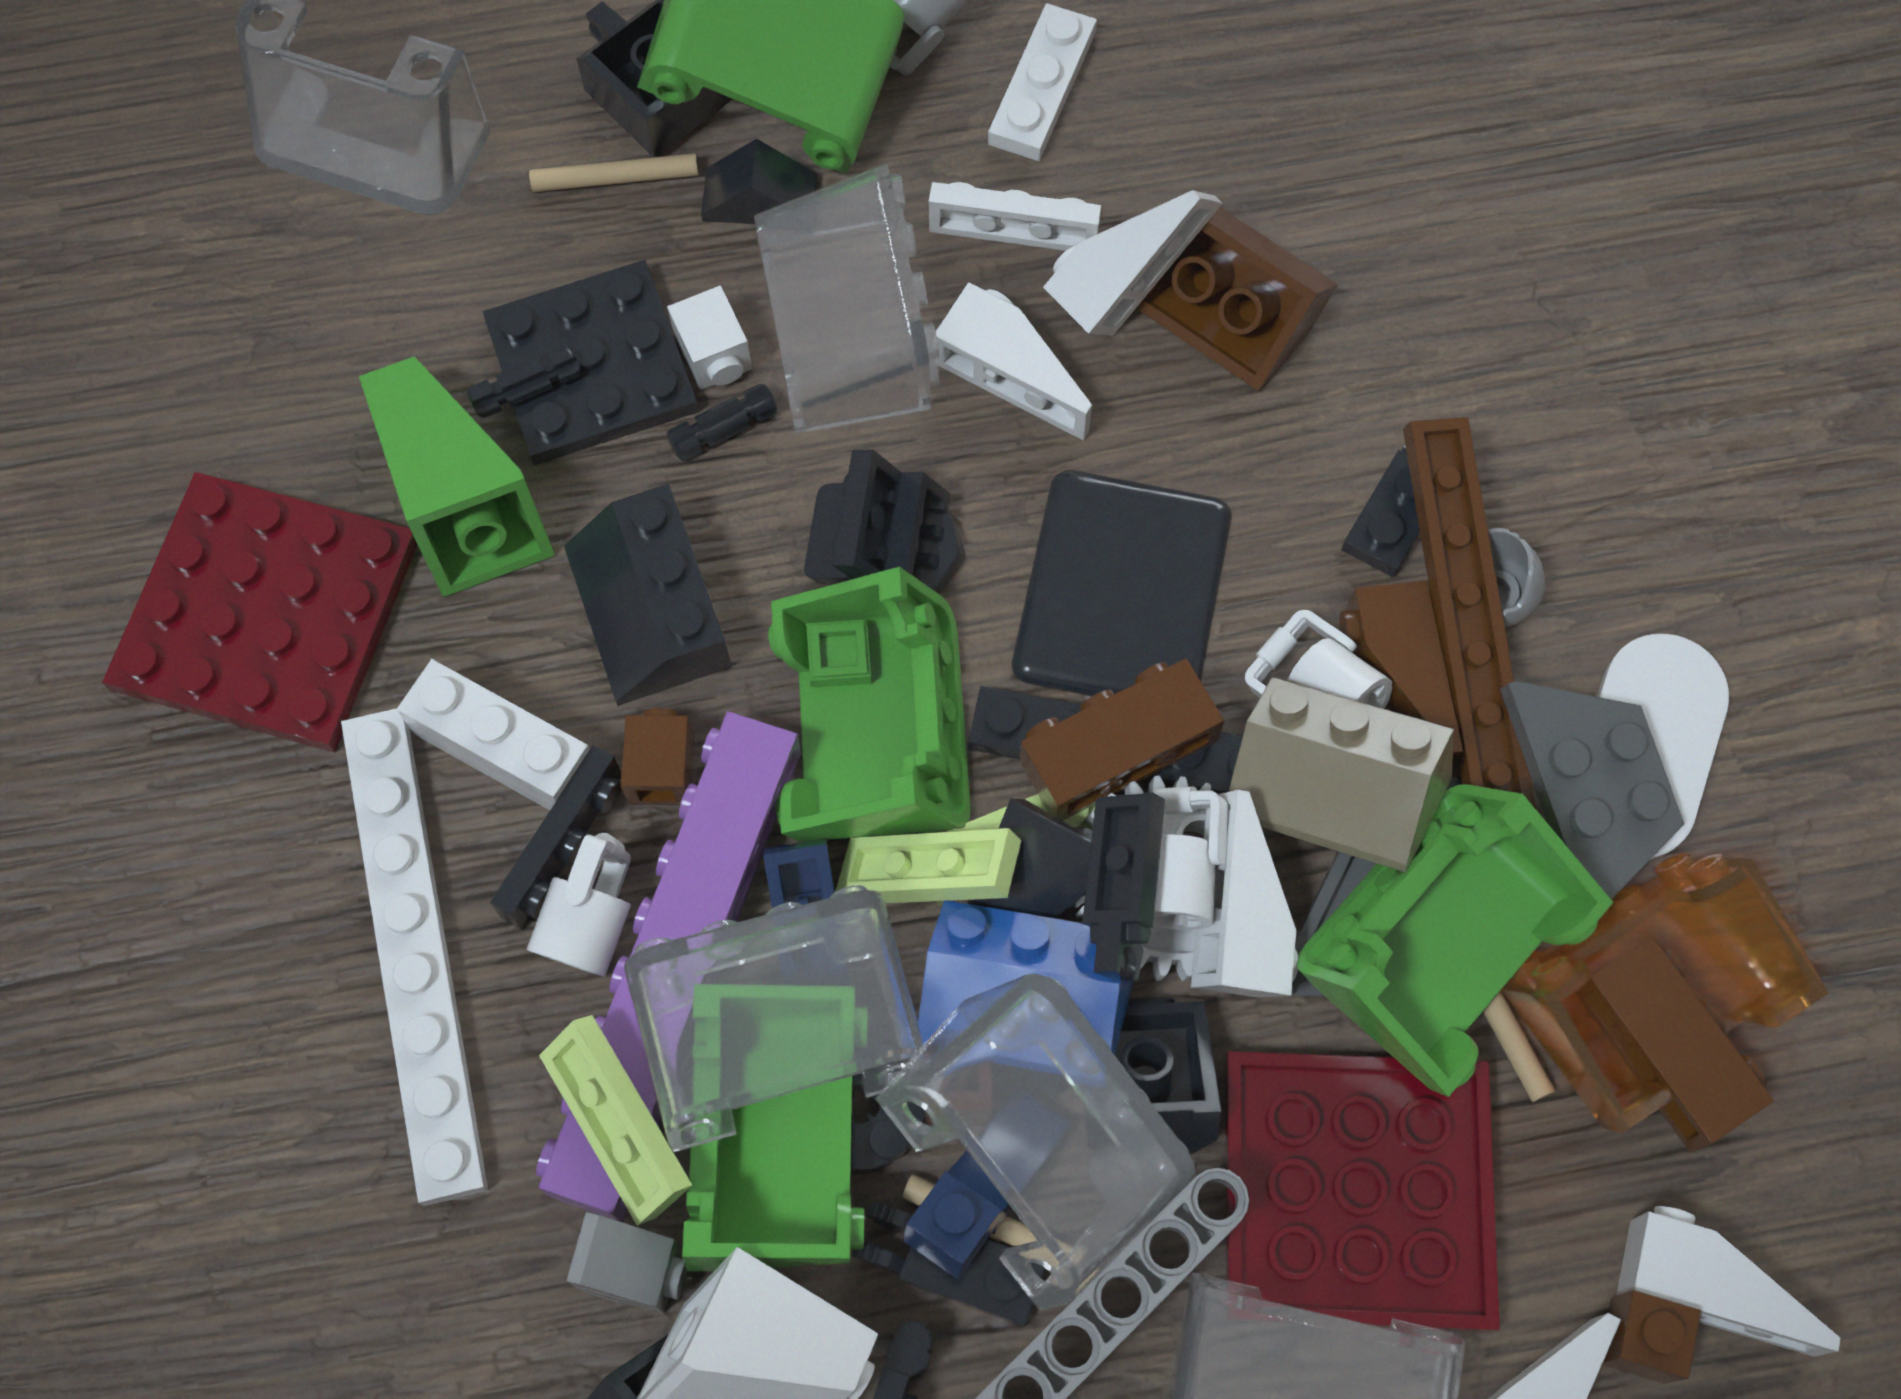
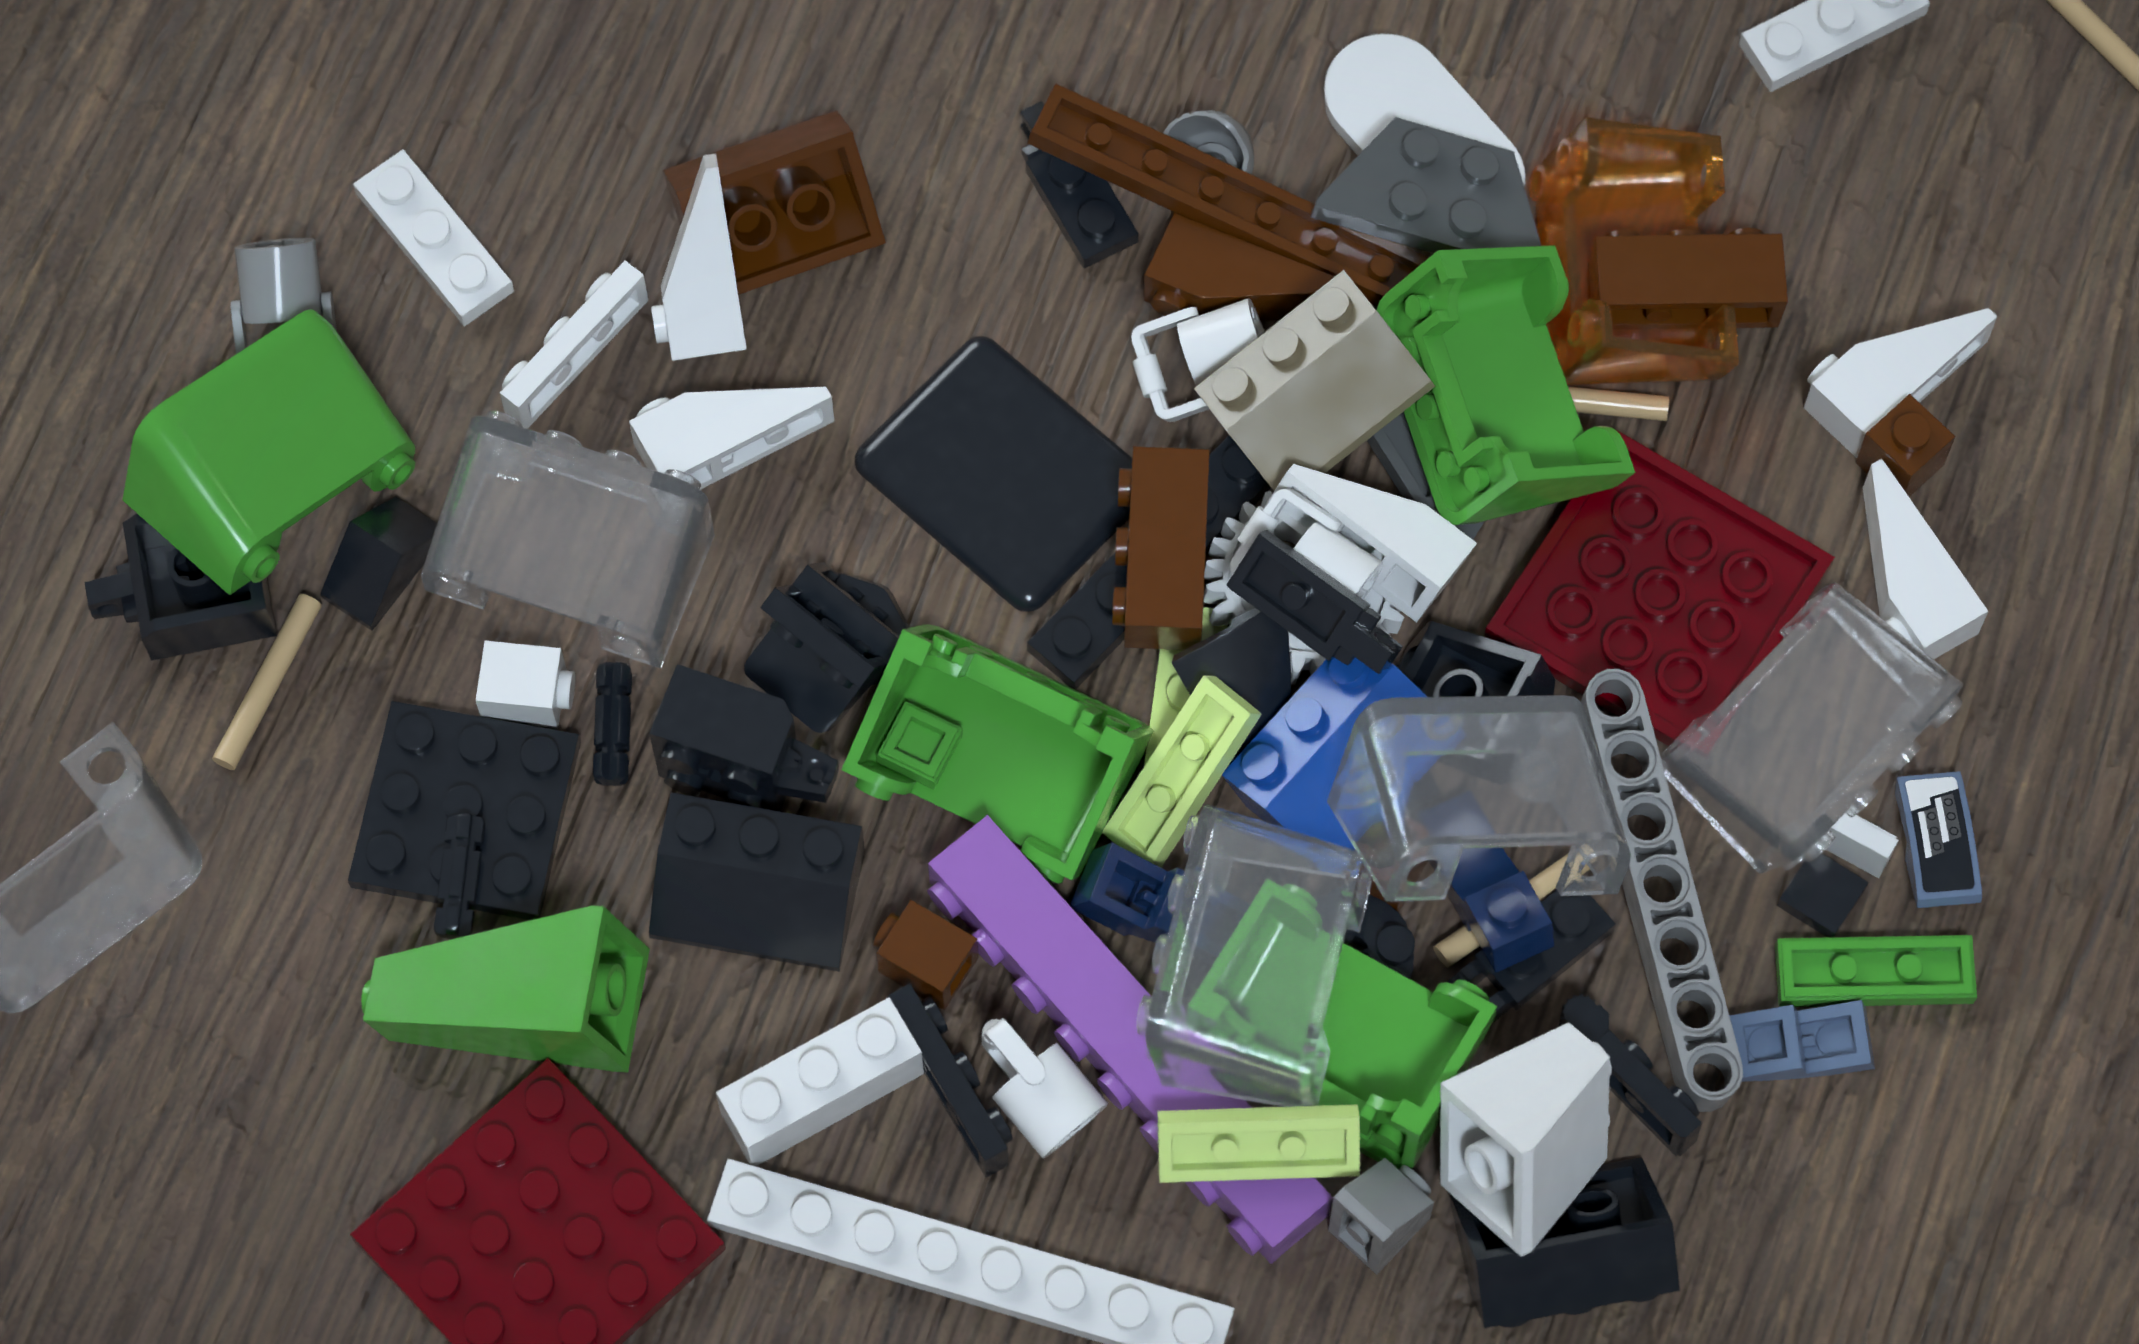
camera: 60 degrees left, 0 degrees up
(738, 507) = (735, 744): none -> black hinge

